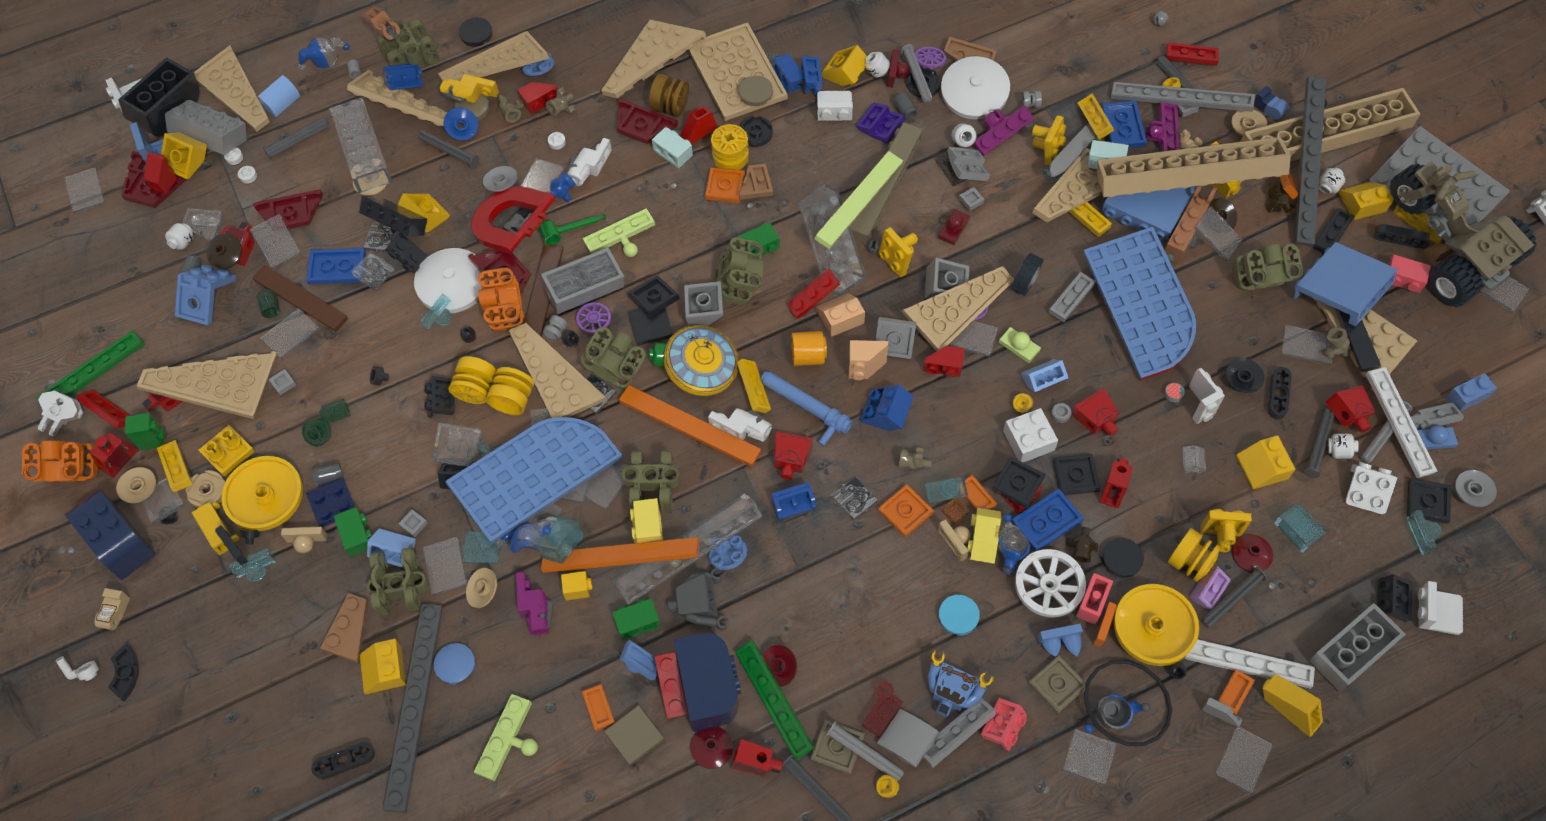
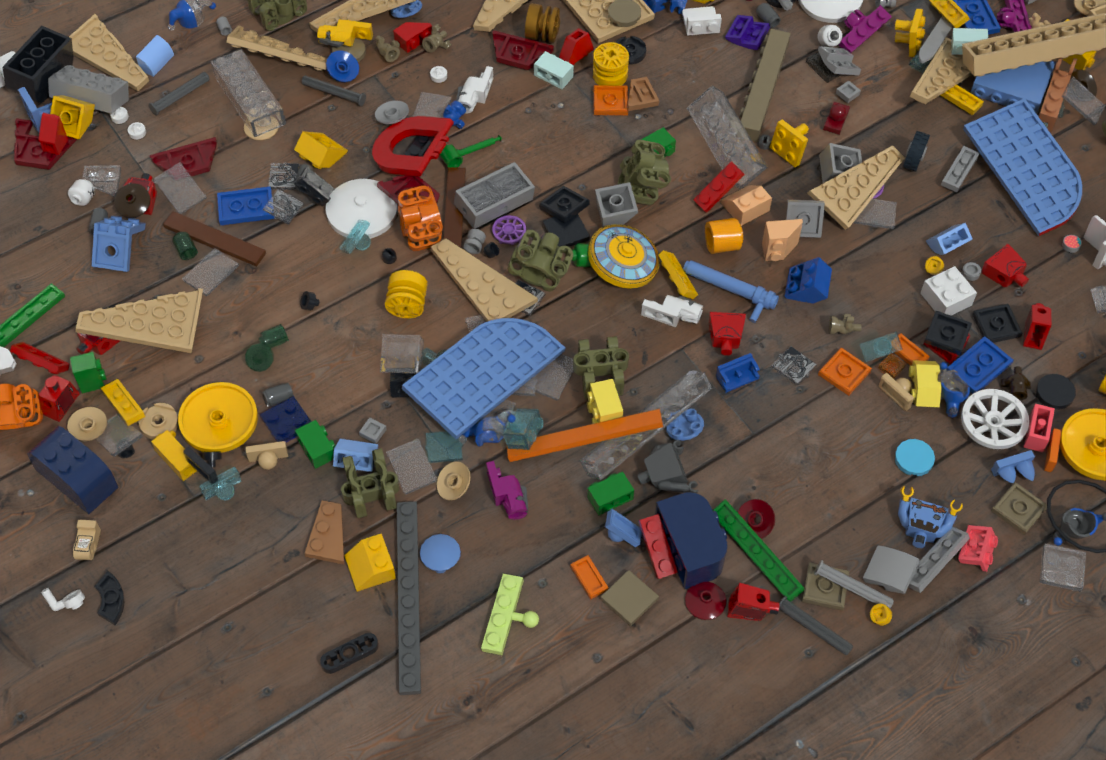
camera: 10 degrees left, 5 degrees down
(226, 450) = (171, 383): yellow plate -> none
(282, 382) = (214, 316): light grey plate -> none
(393, 215) = (295, 153): black brick -> none
(402, 76) = (276, 27): blue hinge -> none
(439, 398) = (374, 313): black bracket -> none
(510, 391) = (445, 300): yellow wheel -> none
(576, 585) = (545, 469): yellow brick -> none
(620, 232) = (519, 150): yellowish green plate -> none
(690, 426) = (623, 316): orange tile -> none
(858, 200) = (747, 98): yellowish green tile -> none
(883, 711) = (862, 548): clear red hinge -> none
(945, 361) = (855, 236): red slope -> none
(1020, 344) = (920, 215): yellowish green tile -> none

